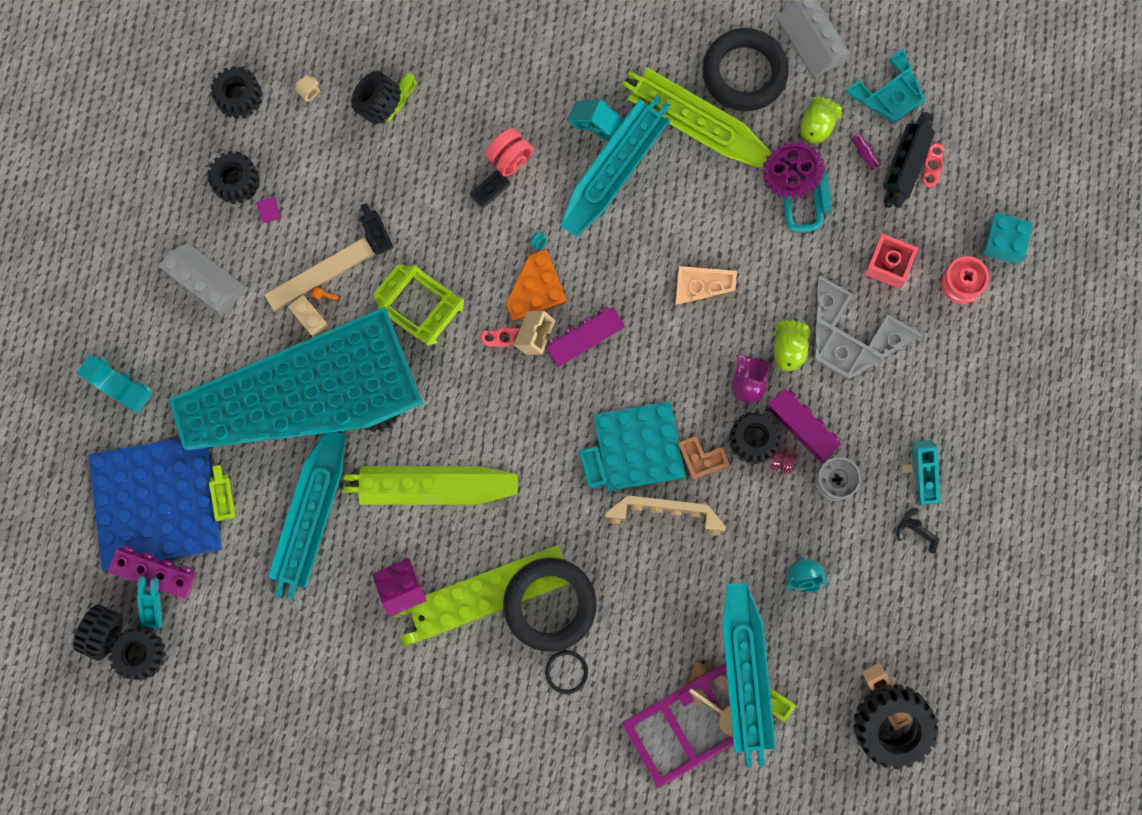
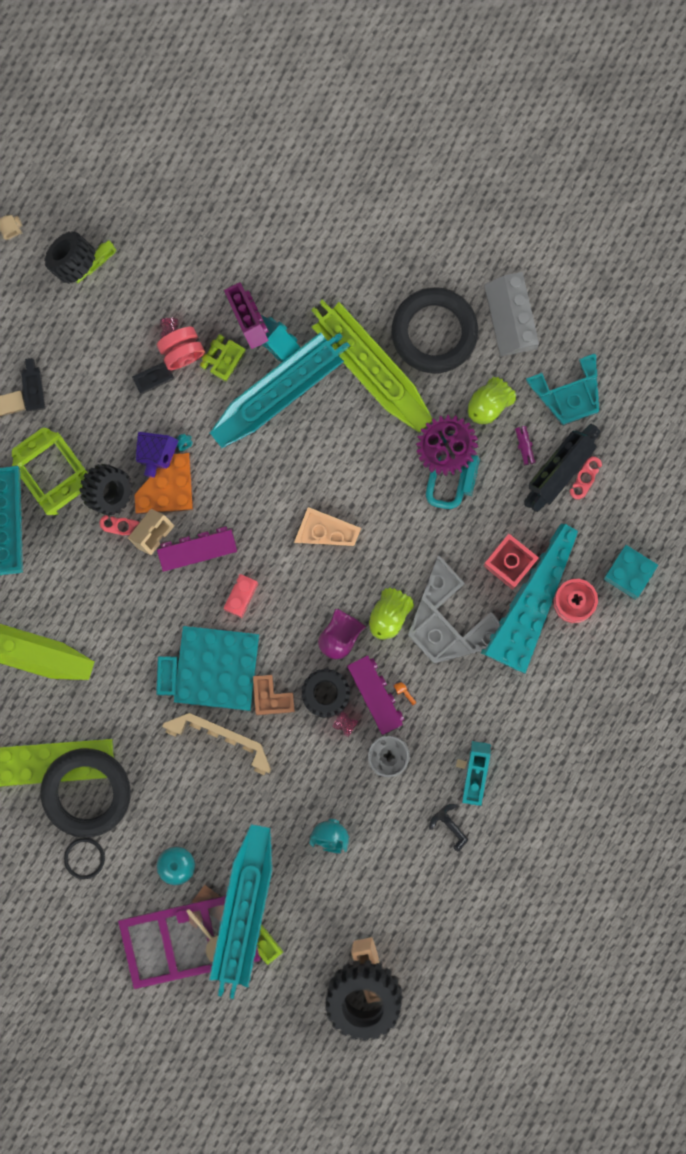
camera: 20 degrees right, 5 degrees up
(478, 303) = (118, 491): none -> black tyre
(488, 136) = (168, 325): none -> clear pink wheel
(514, 255) = (154, 451): none -> dark purple torso
(556, 153) = (226, 362): none -> lime plate
(564, 102) = (247, 315): none -> magenta brick
(641, 369) = (241, 596): none -> coral brick
(660, 651) = (175, 865): none -> teal cylinder
(826, 412) = (401, 688): none -> orange hand
(923, 316) = (522, 626): none -> teal wing

